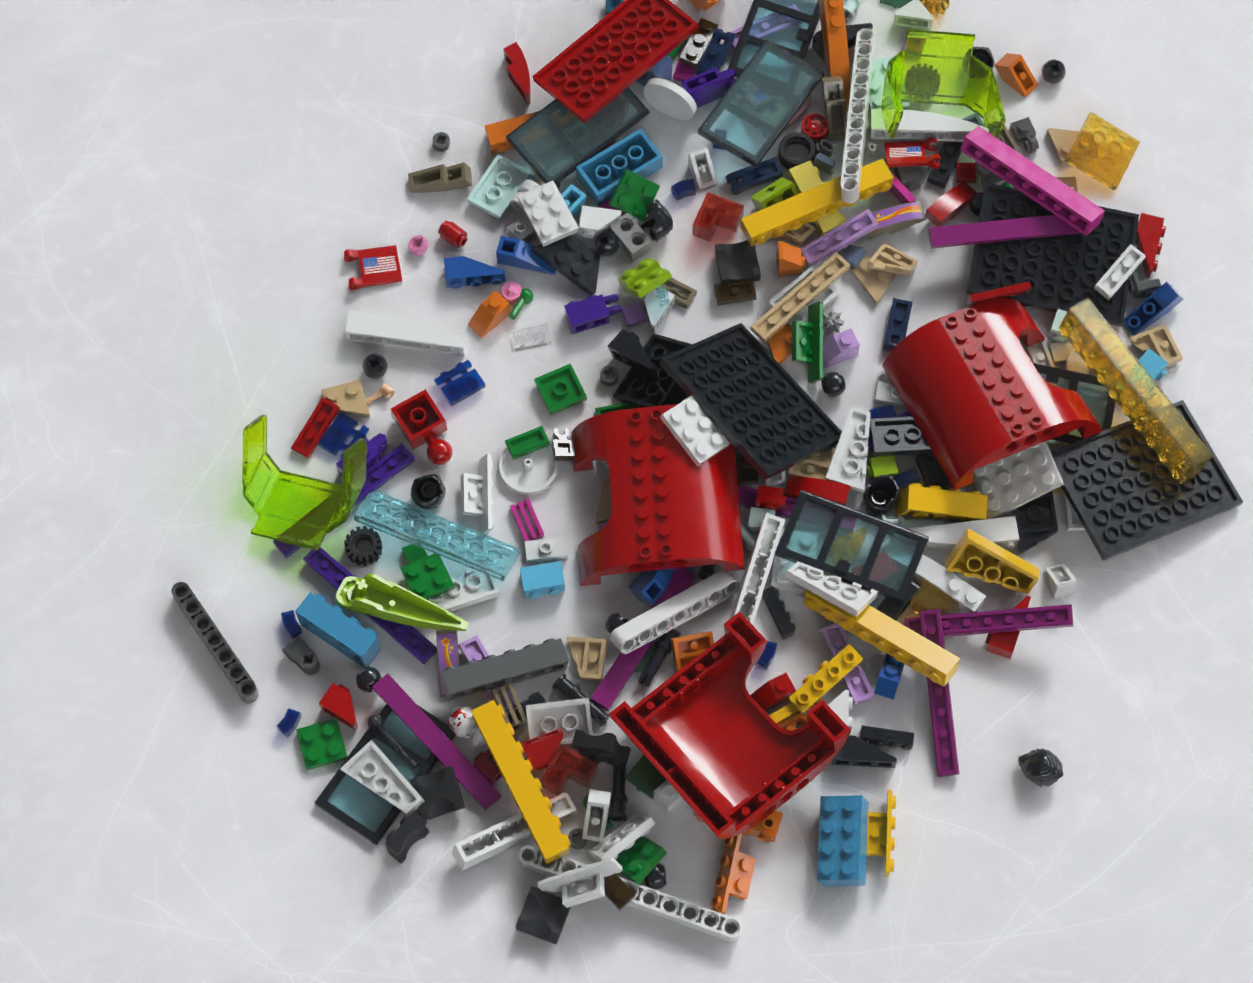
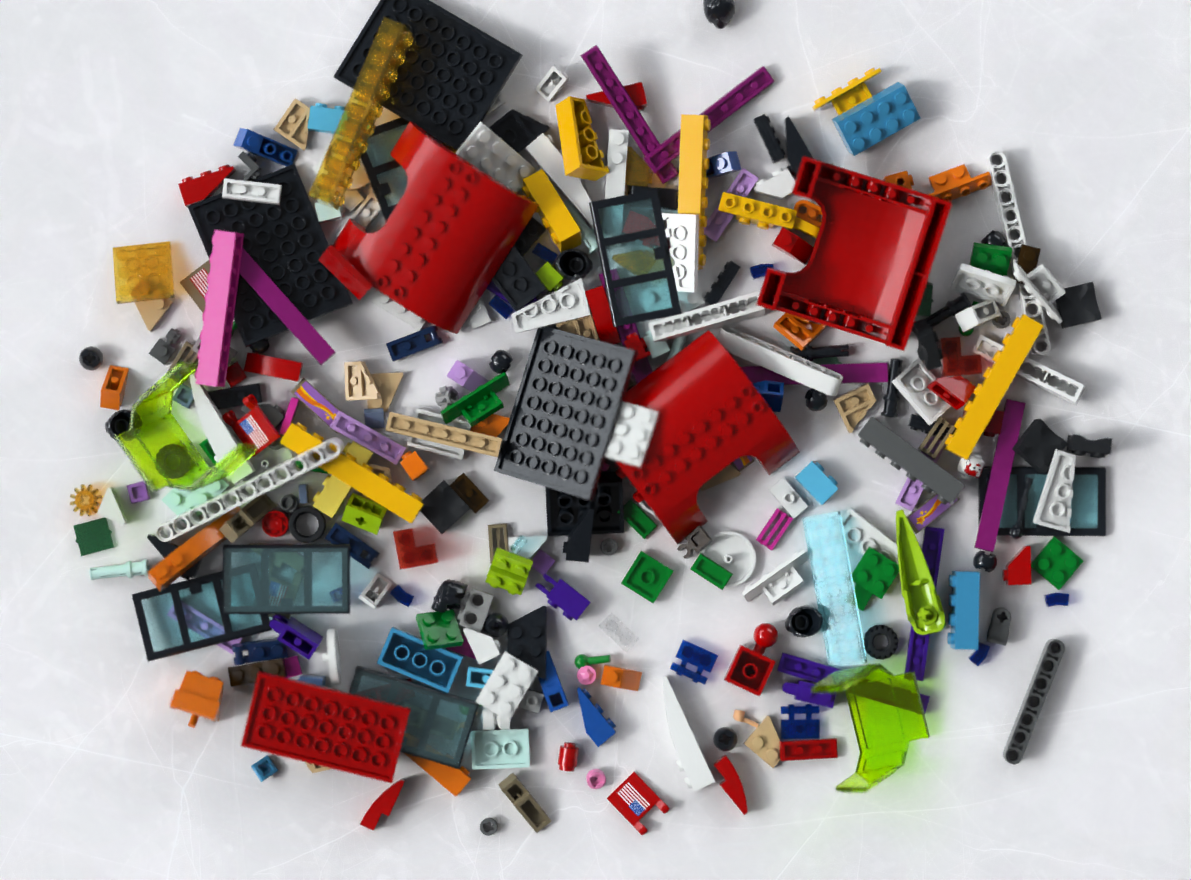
camera: 130 degrees left, 20 degrees up
(332, 348) = (731, 783): none -> red slope

